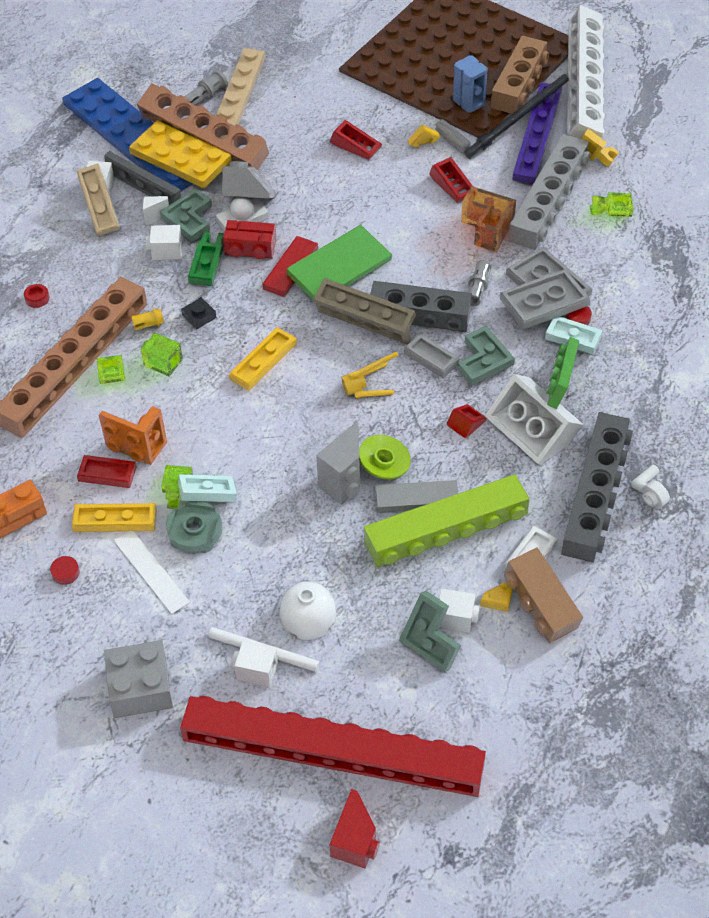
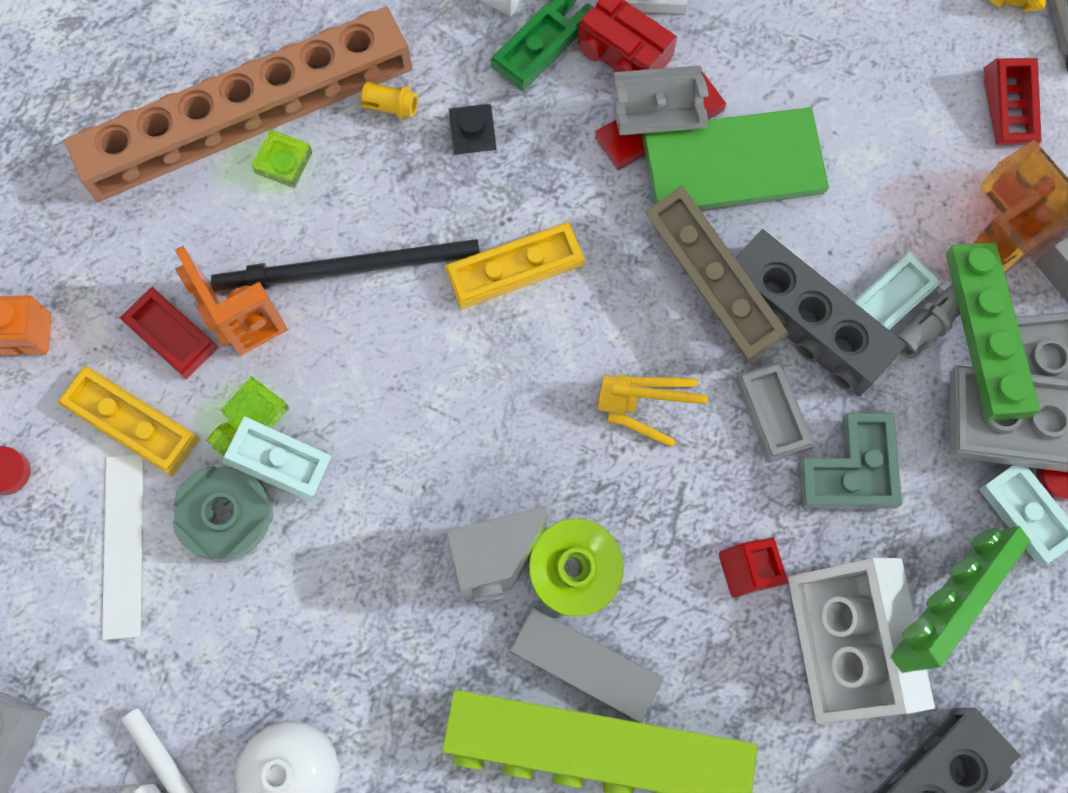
camera: 30 degrees right, 20 degrees up
(161, 354) = (367, 174): clear neon green brick -> none
(195, 387) = (343, 265): none -> black bar
(286, 252) = (659, 100): none -> light grey hinge
(455, 277) = (898, 291): none -> light aqua tile
(506, 270) = (992, 332): none -> bright green plate

